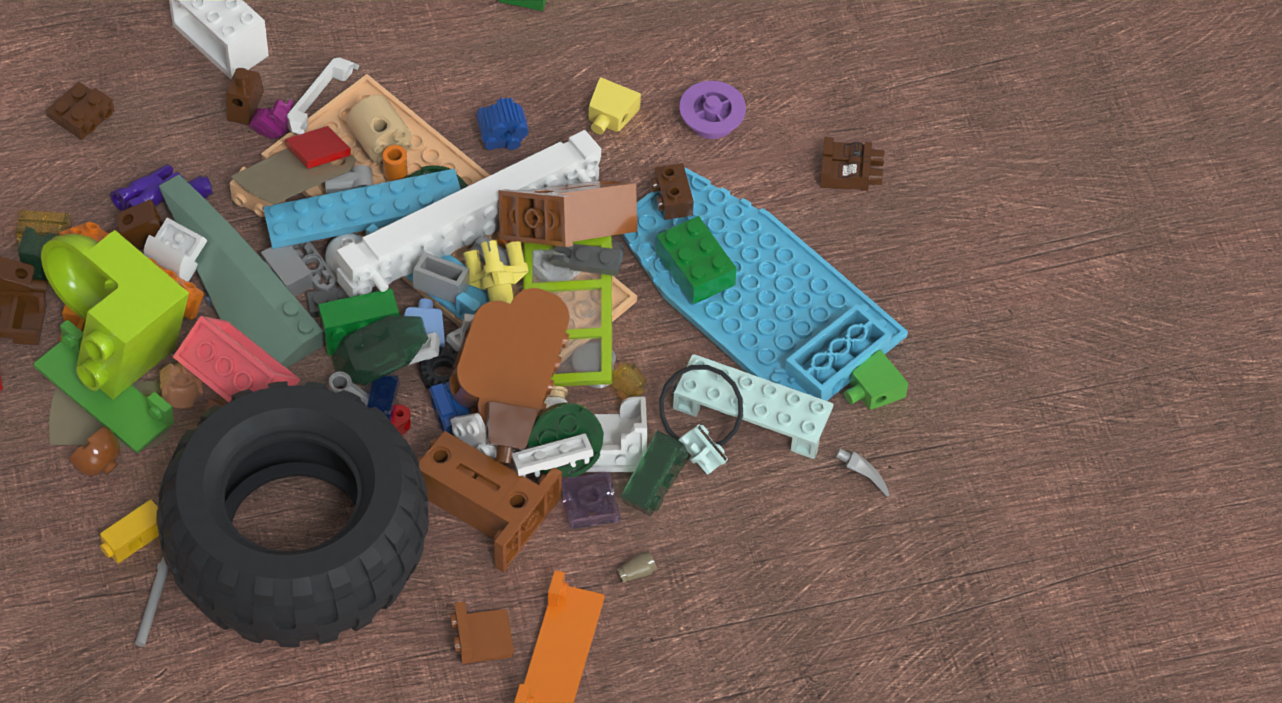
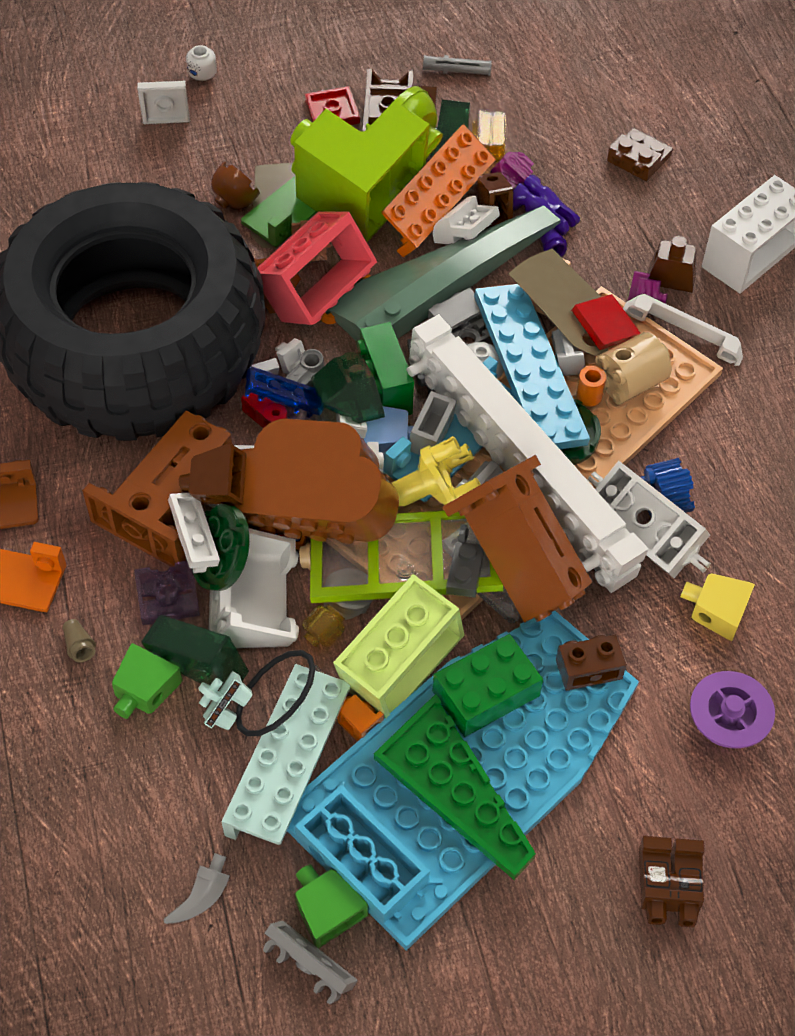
camera: 90 degrees right, 0 degrees up
(102, 209) = (514, 167): none -> magenta hair
(554, 121) = (670, 535): none -> white brick
(667, 311) = (400, 646): none -> yellowish green hose
(680, 514) = (143, 681): none -> bright green torso
(720, 352) = (358, 717): none -> orange brick
(778, 291) = (448, 778): none -> green wing
(919, 394) = (309, 960): none -> light grey plate

